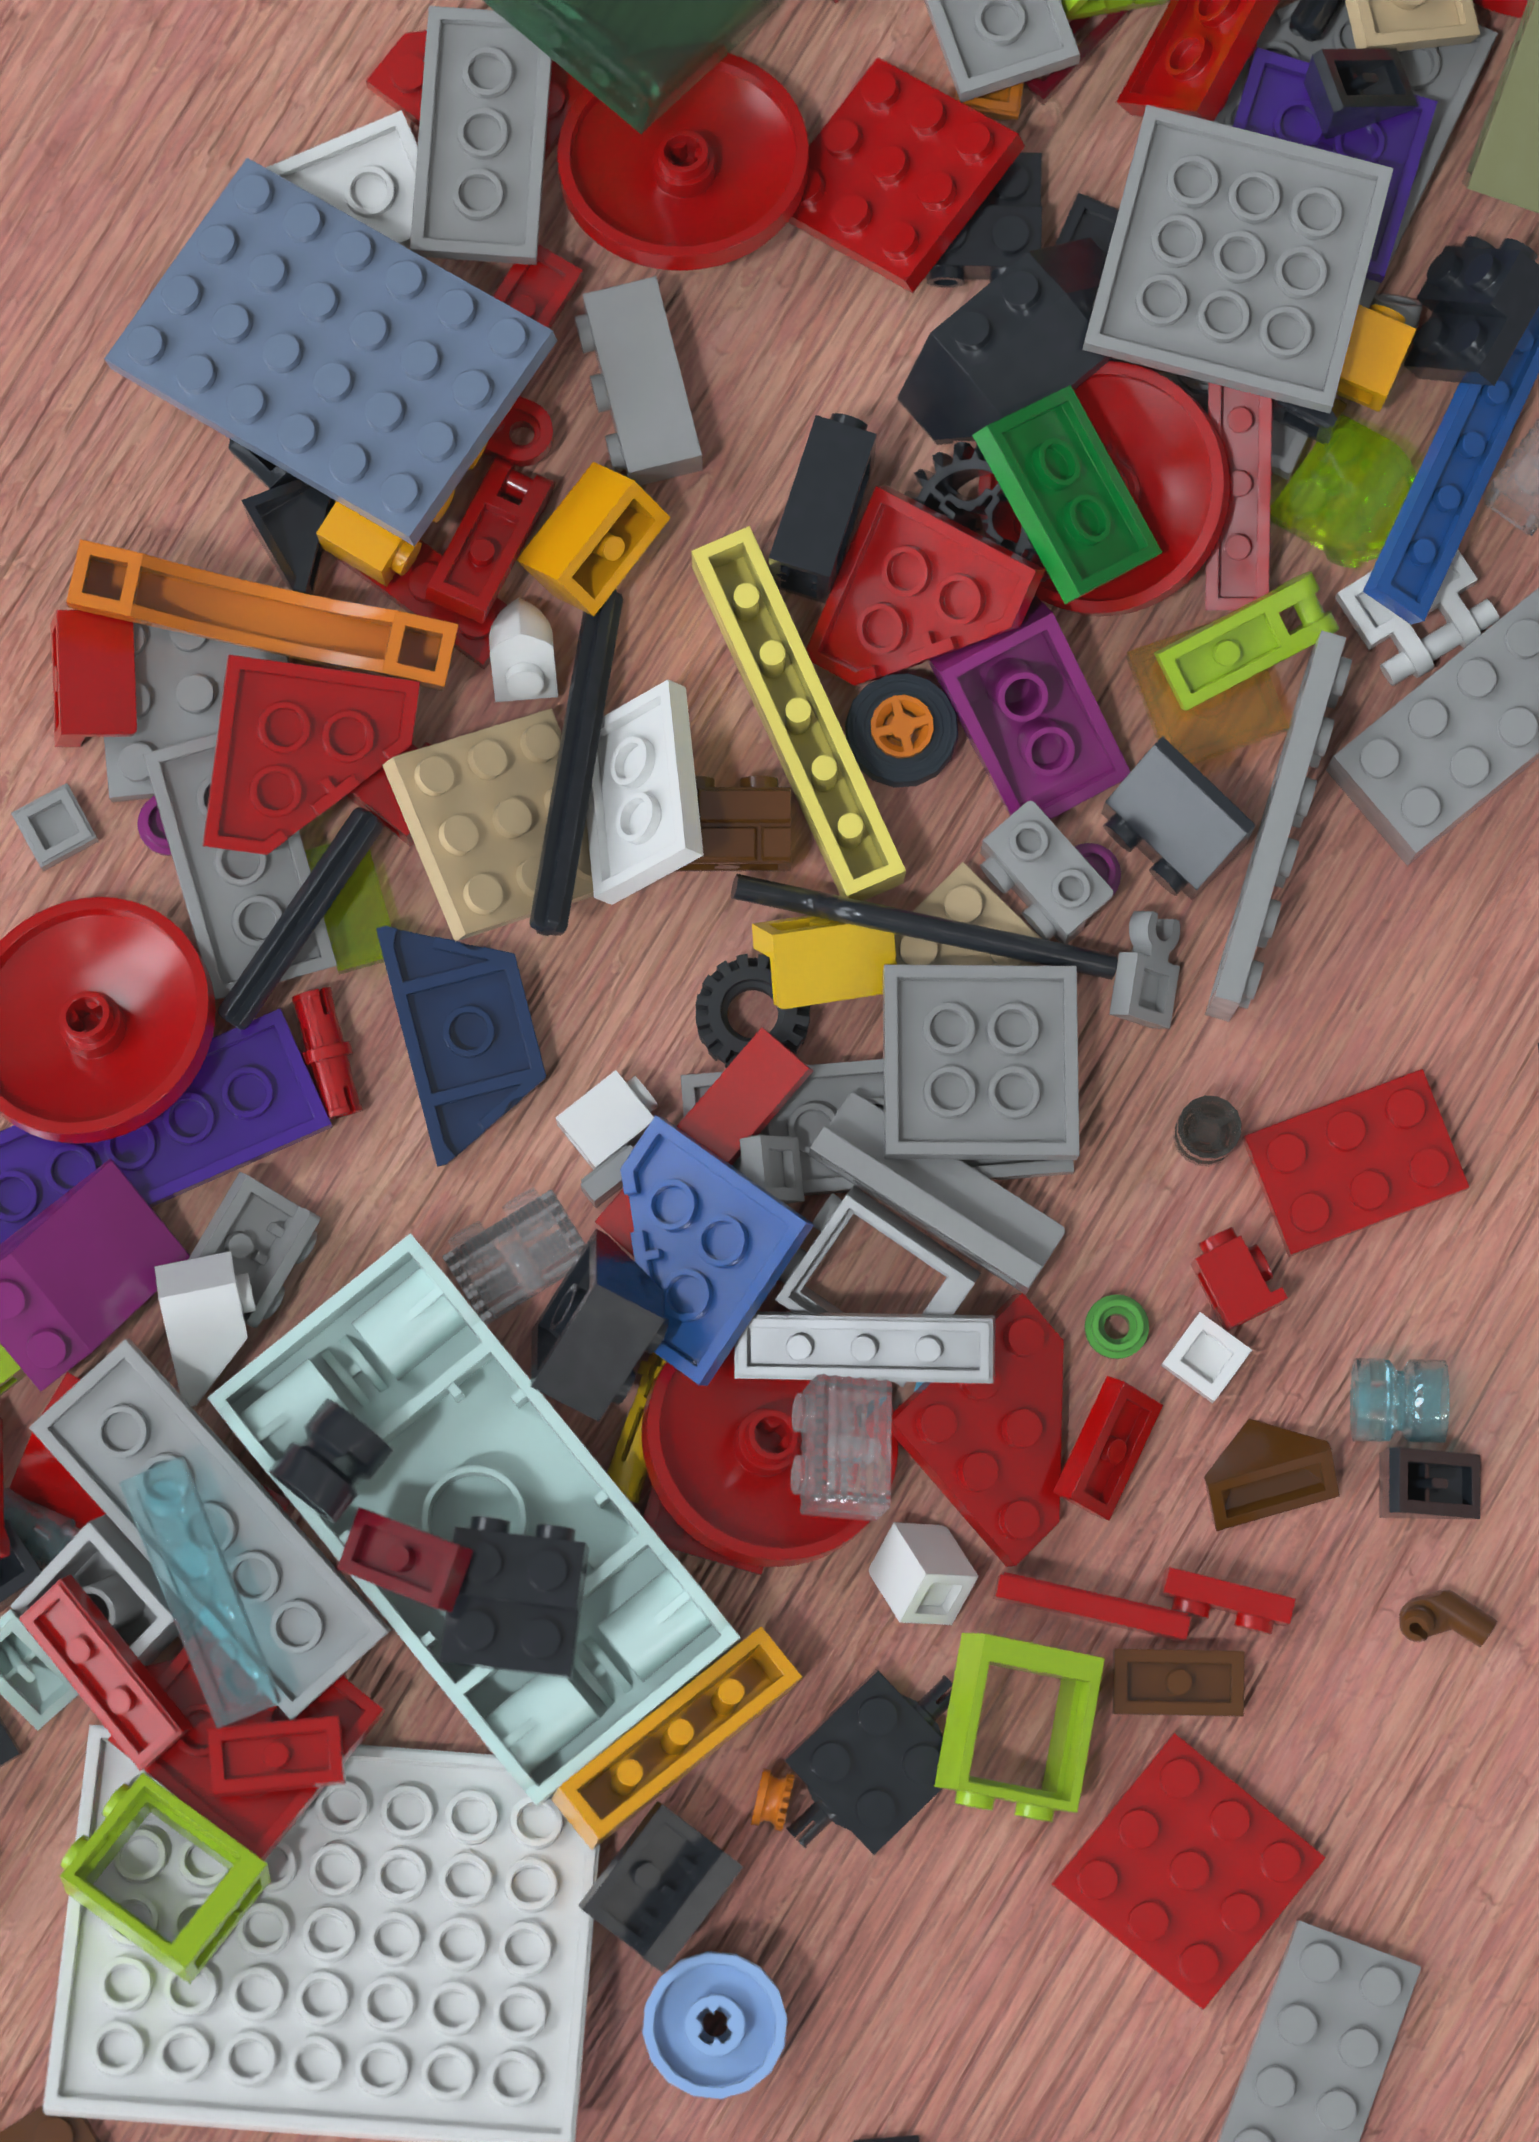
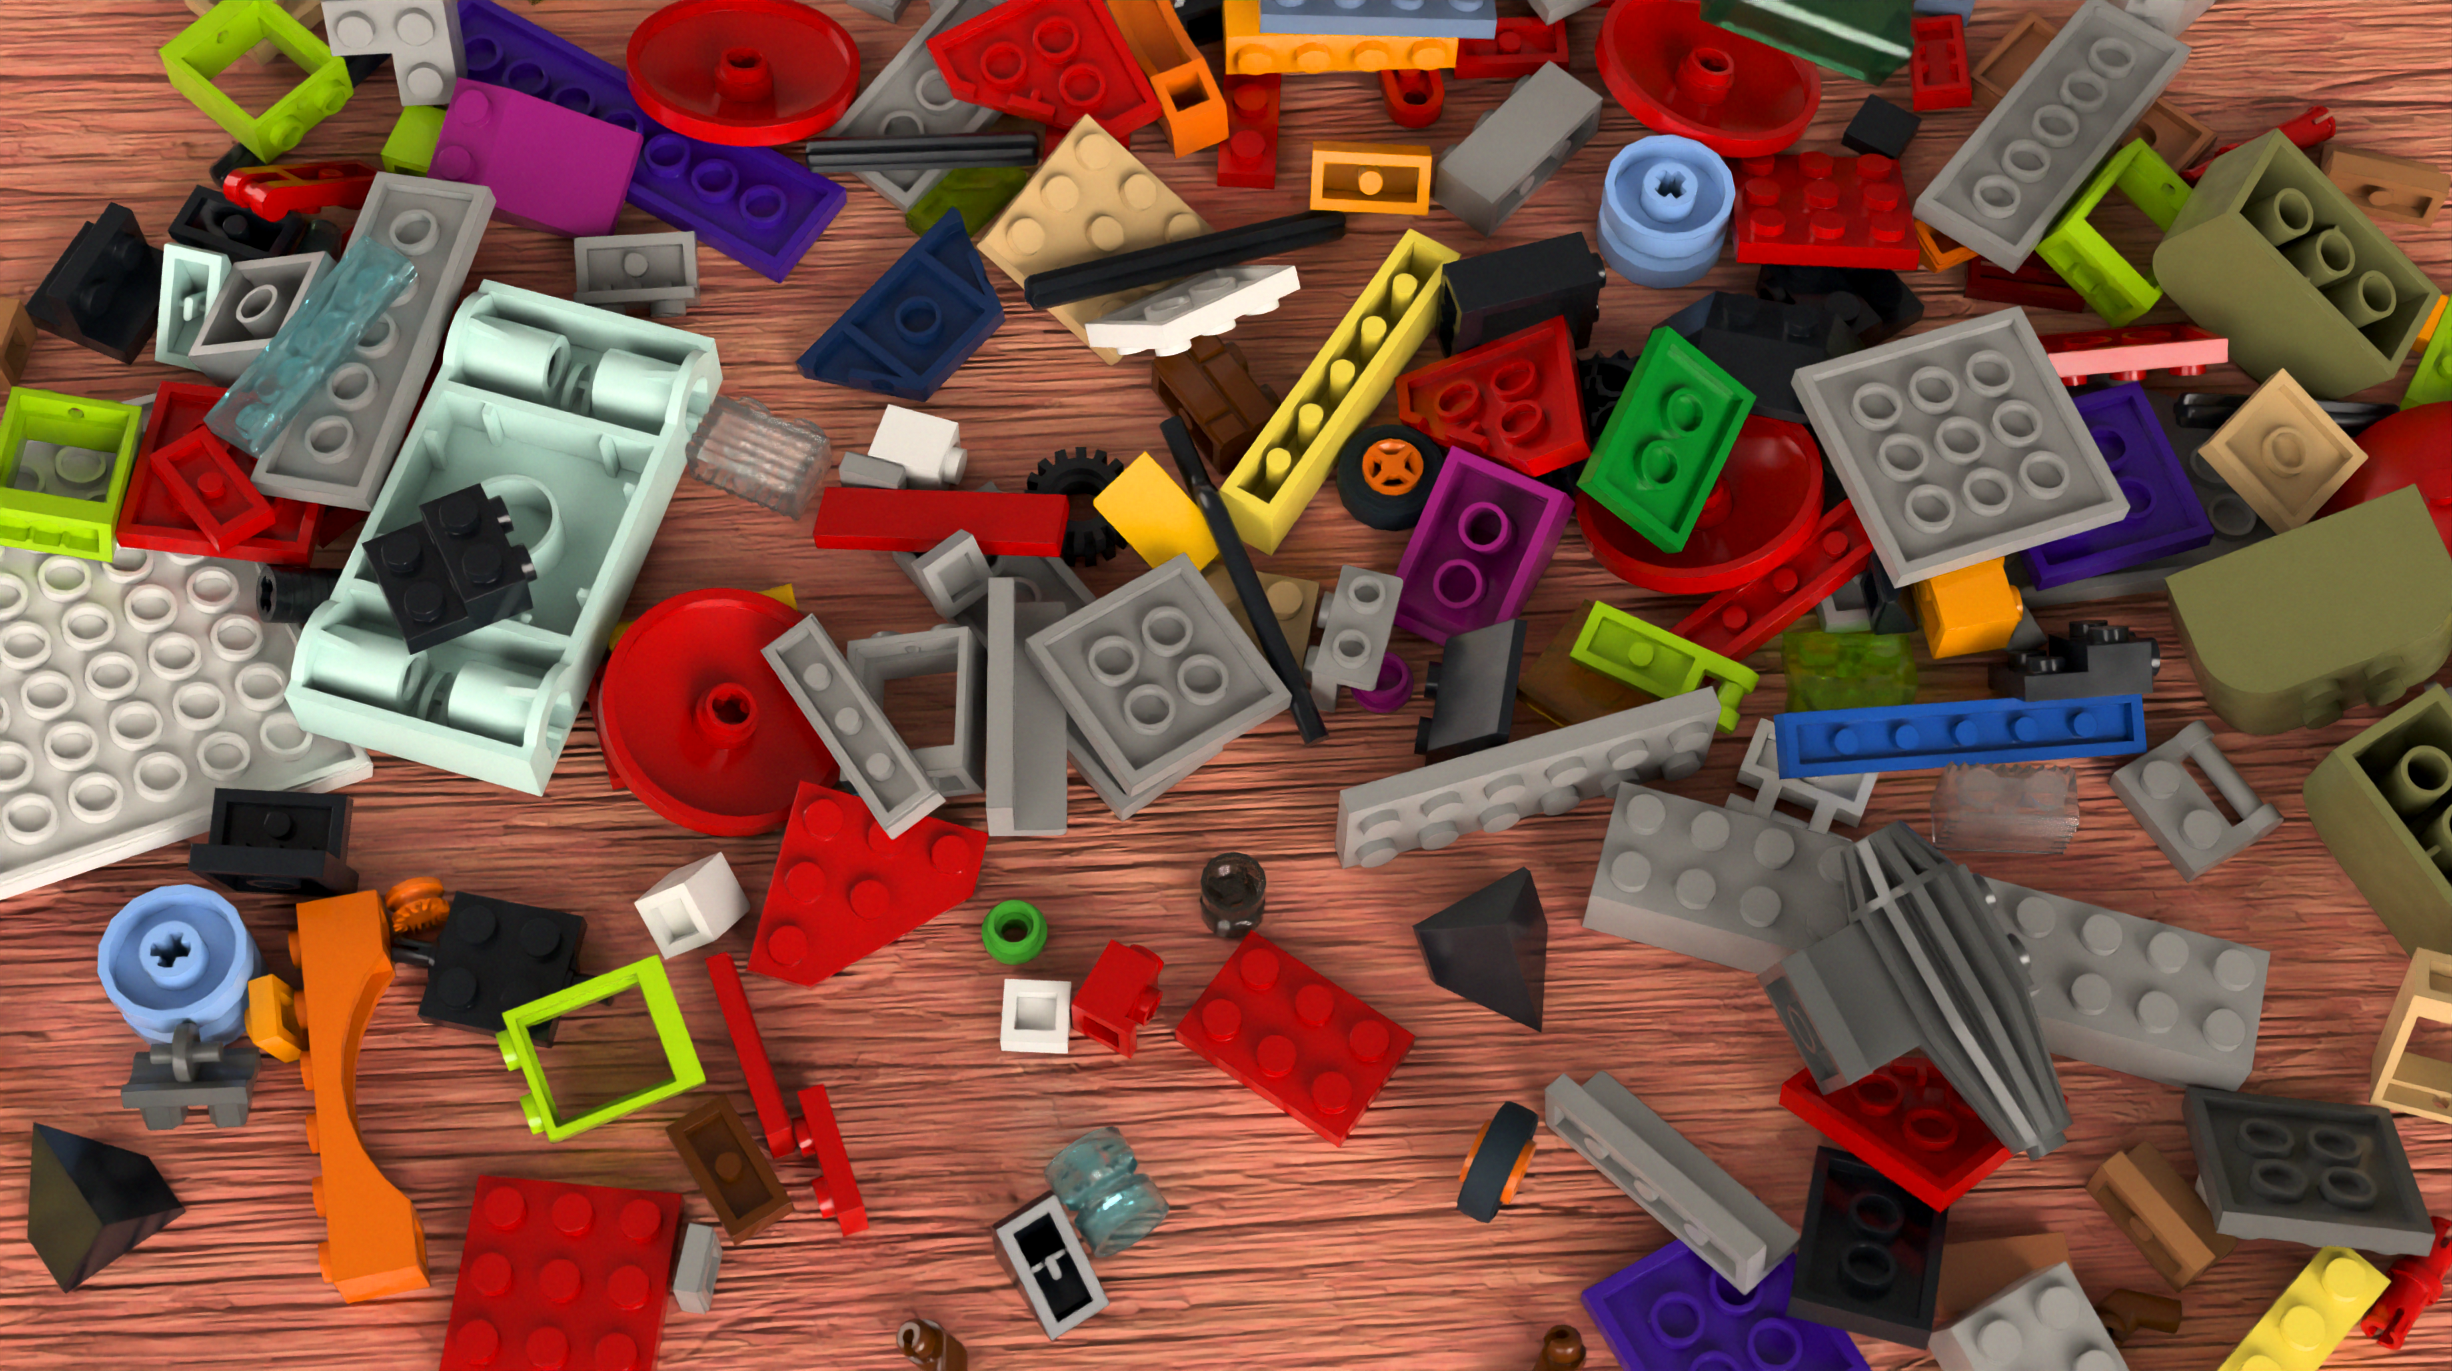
camera: 55 degrees right, 20 degrees down
(105, 1672) = (210, 339): tile -> none
(203, 1318) = (556, 252): white slope -> none
(327, 1052) = (834, 243): red pin -> none
(331, 1460) = (455, 368): black wheel -> none
(405, 1559) = (427, 462): dark red plate -> none
(408, 1729) = (293, 592): none -> black hinge
(488, 541) = (1312, 112): red plate -> none
(522, 654) = (1242, 187): white plate -> none
(597, 1329) = (723, 509): black slope -> none
(676, 1738) = (417, 782): light orange brick -> none
(706, 1242) = (849, 553): plate -> none
(806, 1972) = (273, 1019): none -> light orange plate
(810, 270) = (1664, 211): none -> light blue wheel
(823, 2069) = (192, 1075): none -> dark grey hips
(833, 45) = (1881, 129): none -> black tile
(843, 1447) = (752, 756): clear brick -> none
(1043, 1991) = (372, 1227): none -> orange arch
(1108, 1448) = (901, 983): red plate -> none
(1144, 978) = (1323, 767): light grey plate -> none
(1250, 1757) = (698, 1269): none -> light grey tile
(1268, 1474) = (965, 1131): reddish brown slope -> none
(1357, 88) = (2171, 454): black slope -> none
(1389, 954) = (1491, 948): none -> black slope

